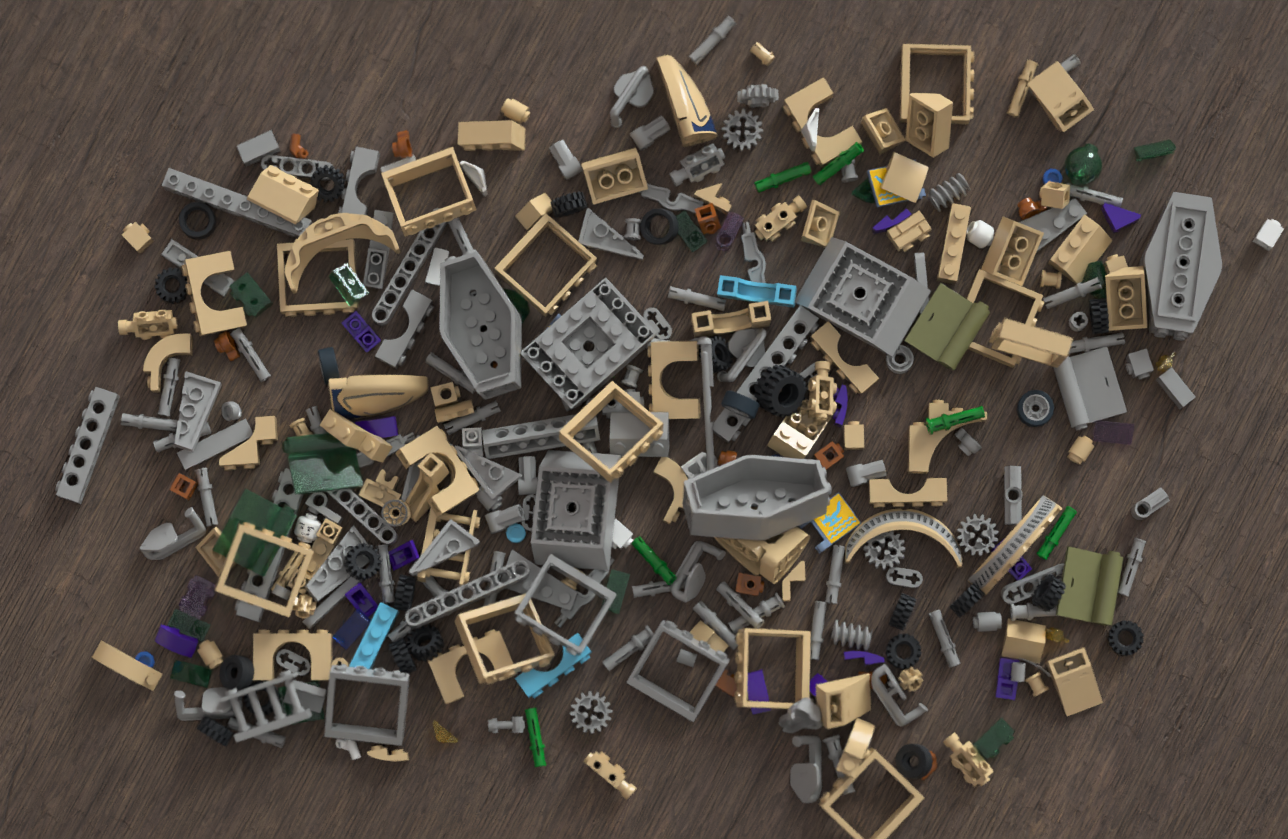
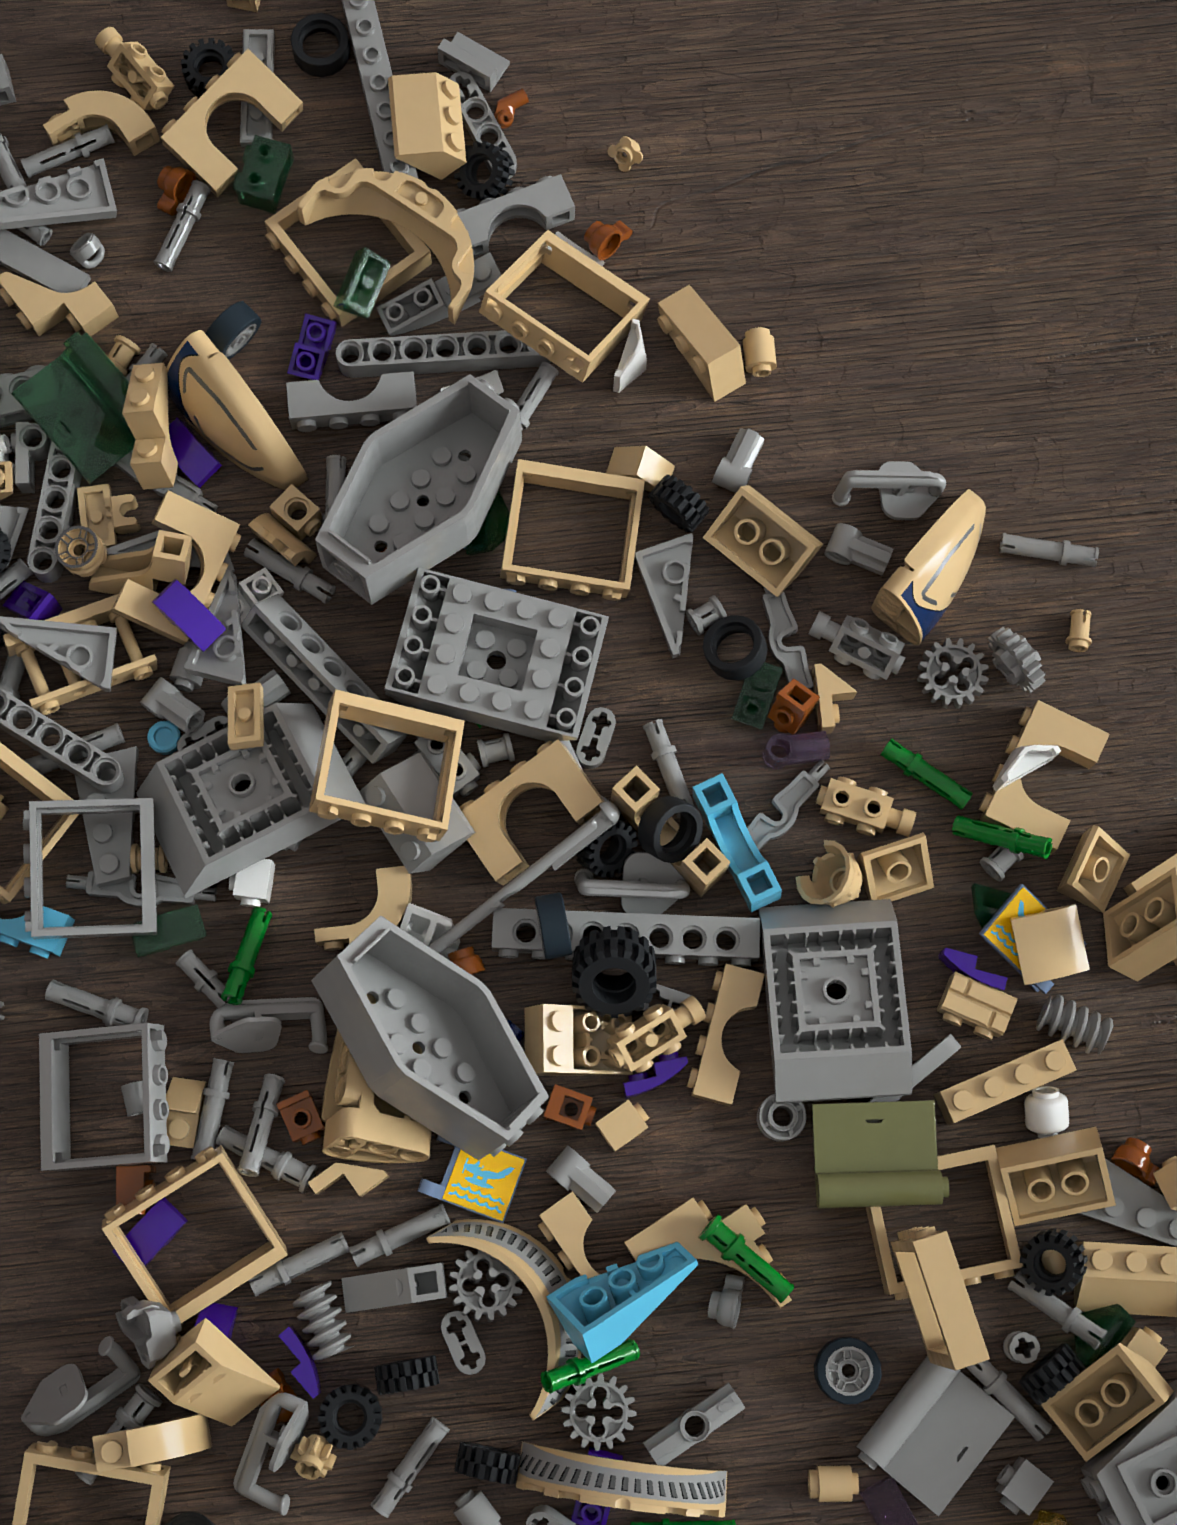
camera: 50 degrees right, 5 degrees down
(363, 105) = (632, 150): none -> tan plate
(469, 479) = (189, 615): none -> dark purple slope
(538, 484) = (245, 716): none -> tan plate
(738, 313) = (654, 820): none -> black tyre
(804, 256) = (834, 877): none -> tan helmet
(858, 592) = (394, 1287): none -> light grey slope
(934, 495) = (610, 1306): none -> medium azure wedge
(953, 530) = (579, 1369): none -> green pin
(1055, 289) = (1039, 1275): none -> black tyre

